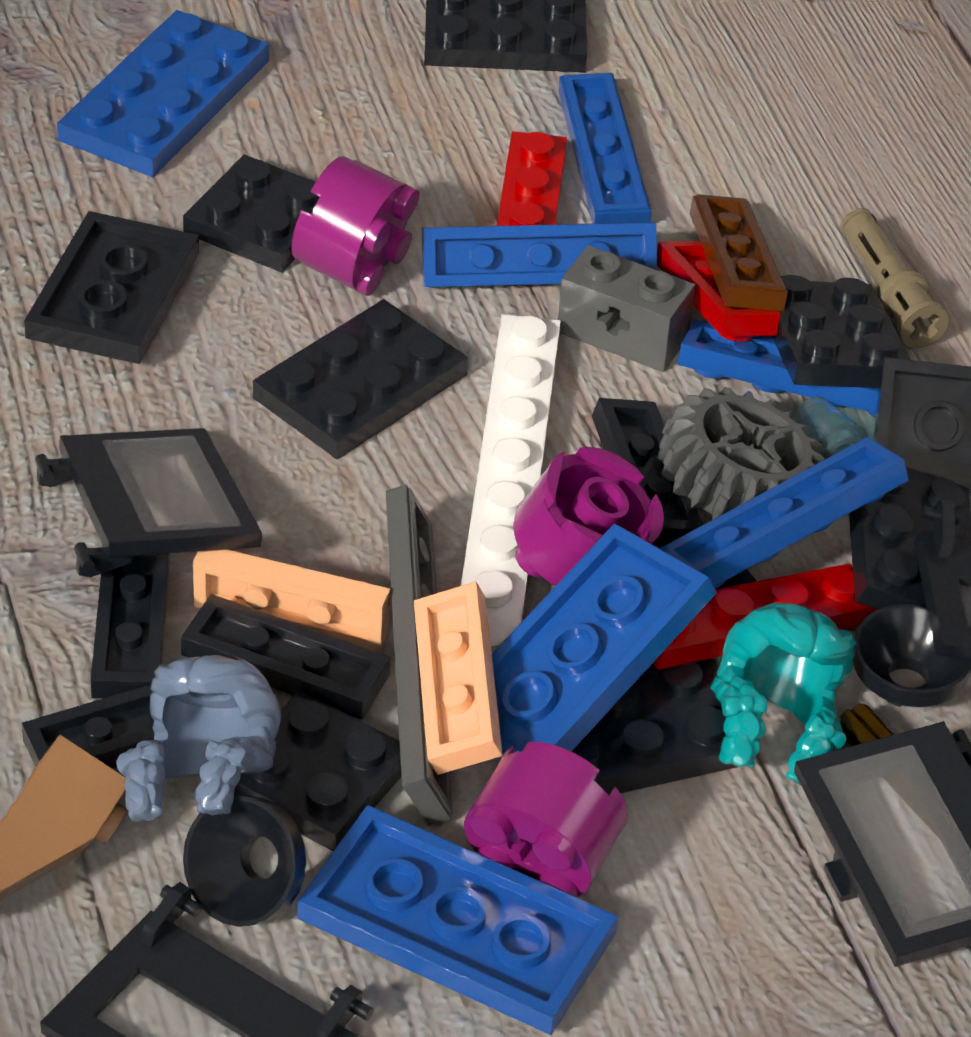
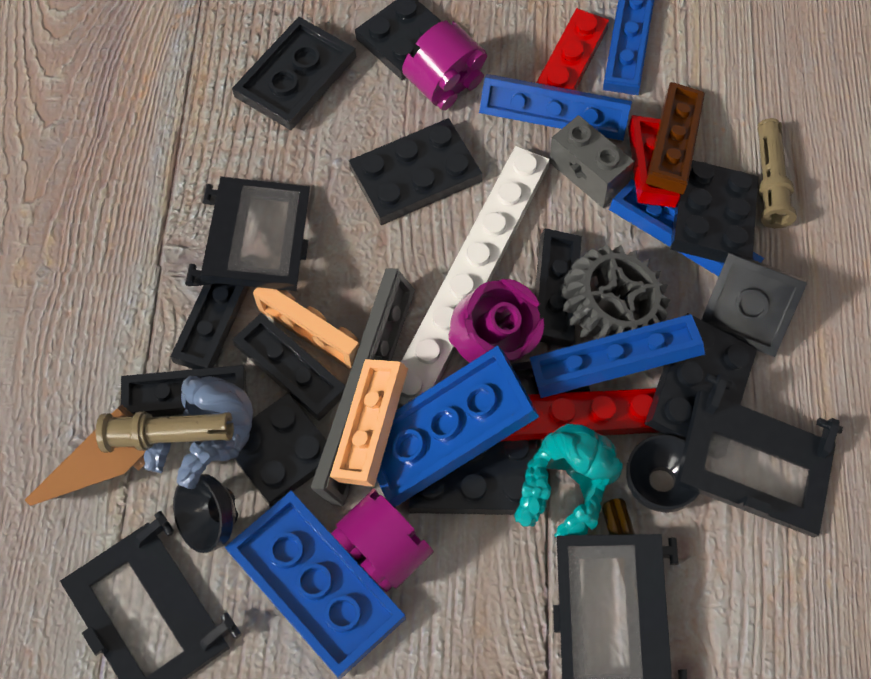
camera: 25 degrees right, 20 degrees up
(124, 743) = (144, 430): none -> dark tan pin
(829, 426) = (684, 289): clear light blue cone -> none

